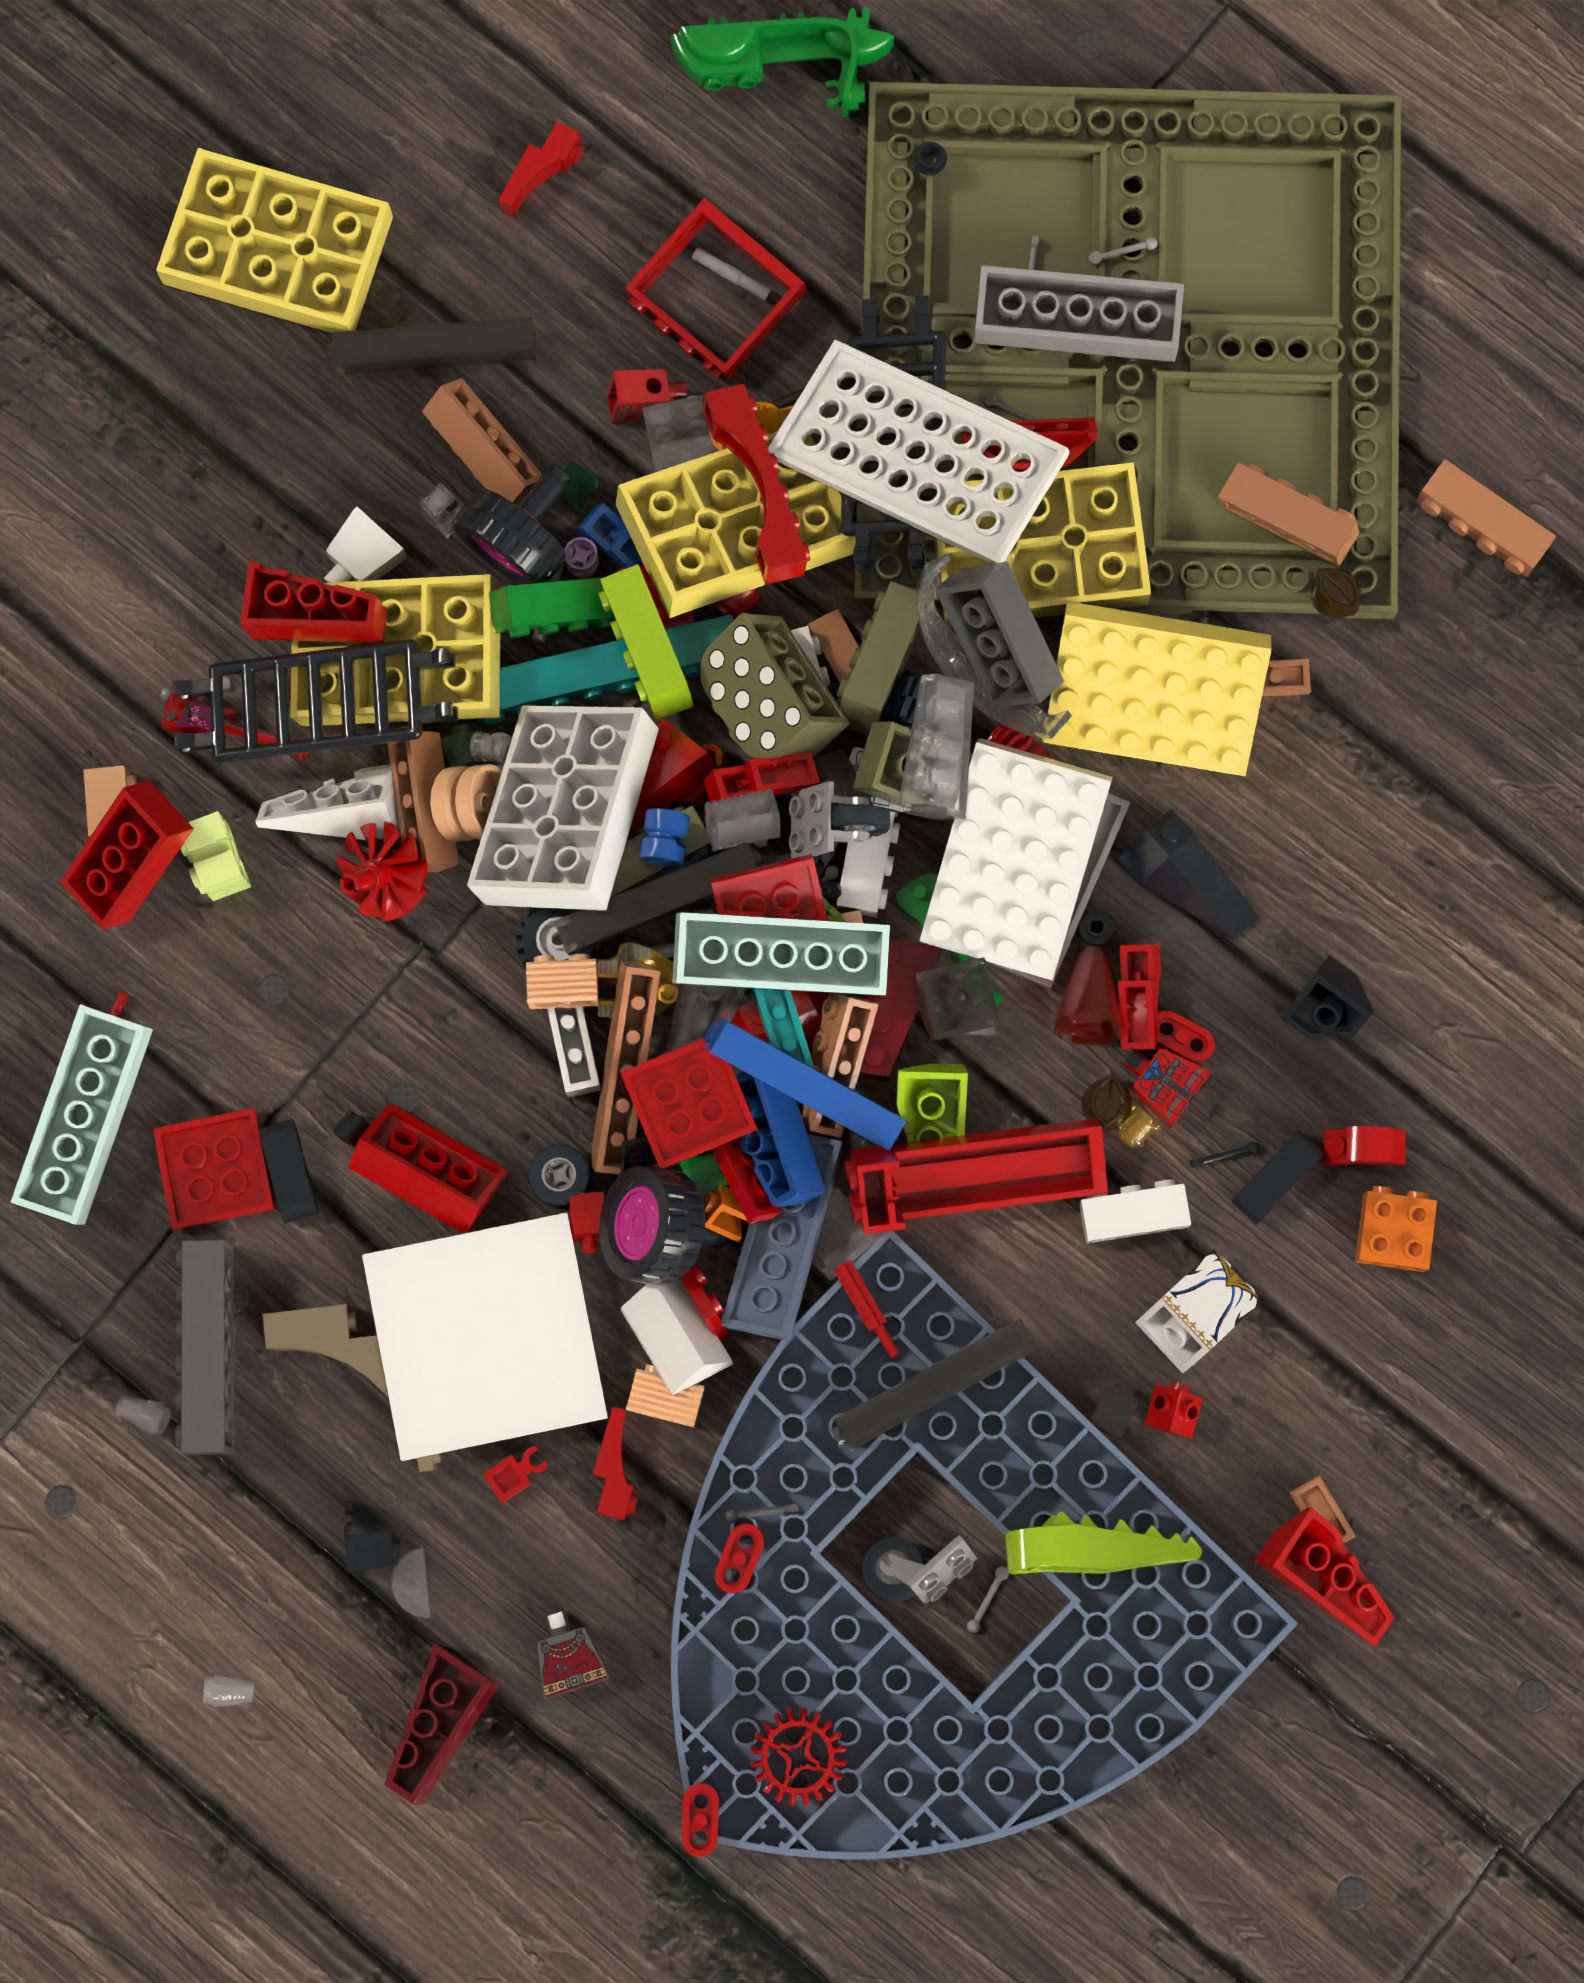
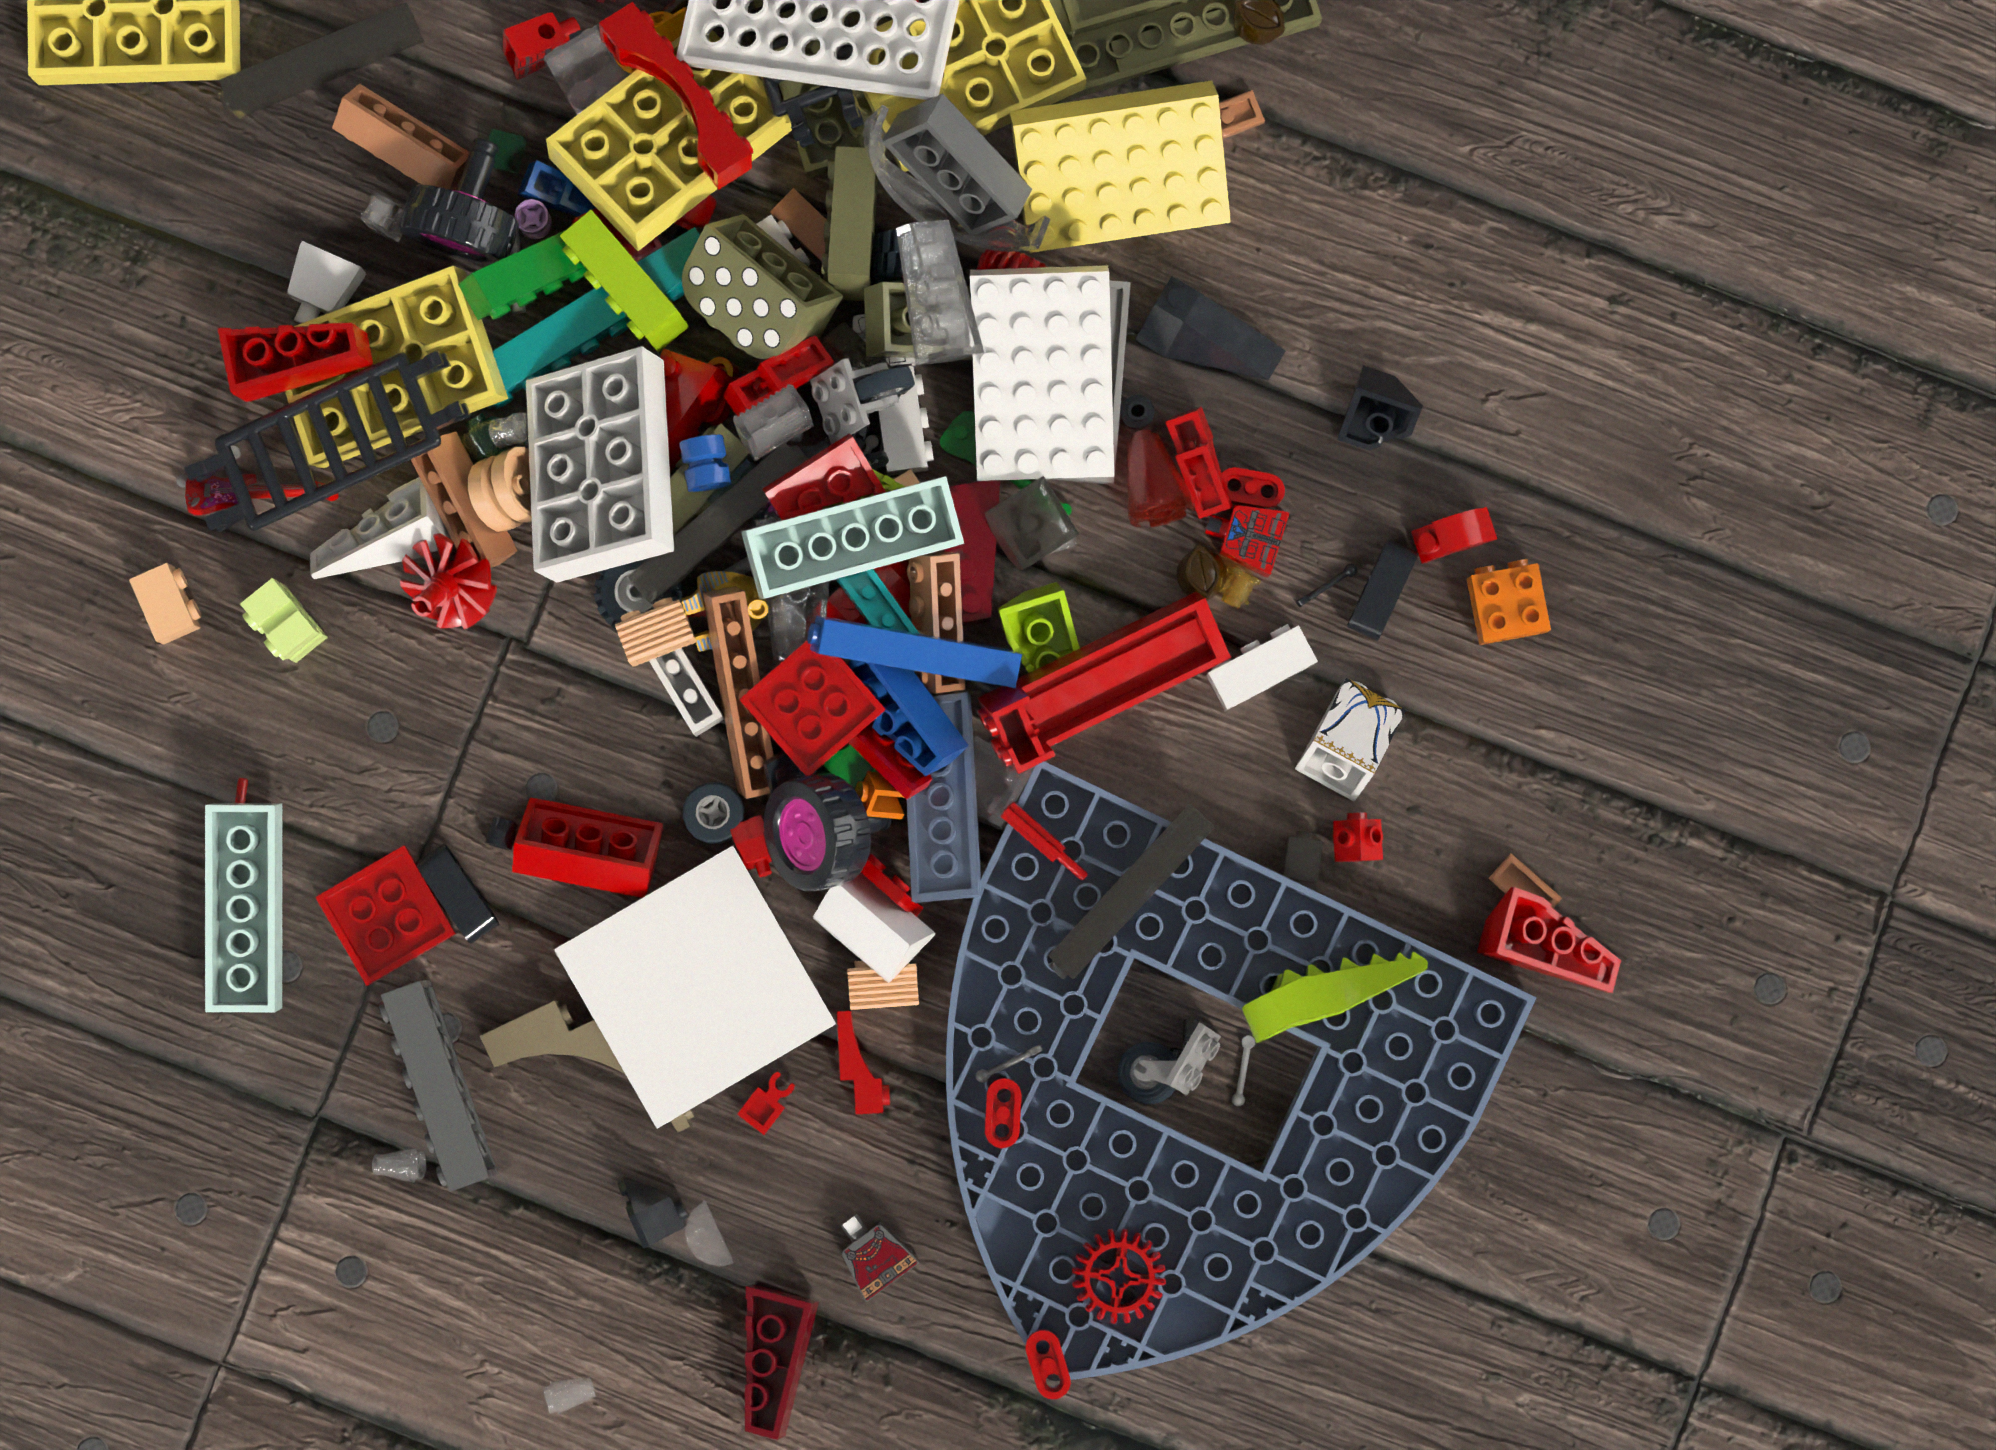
camera: 25 degrees left, 5 degrees up
(126, 854) = (199, 647): red brick -> none

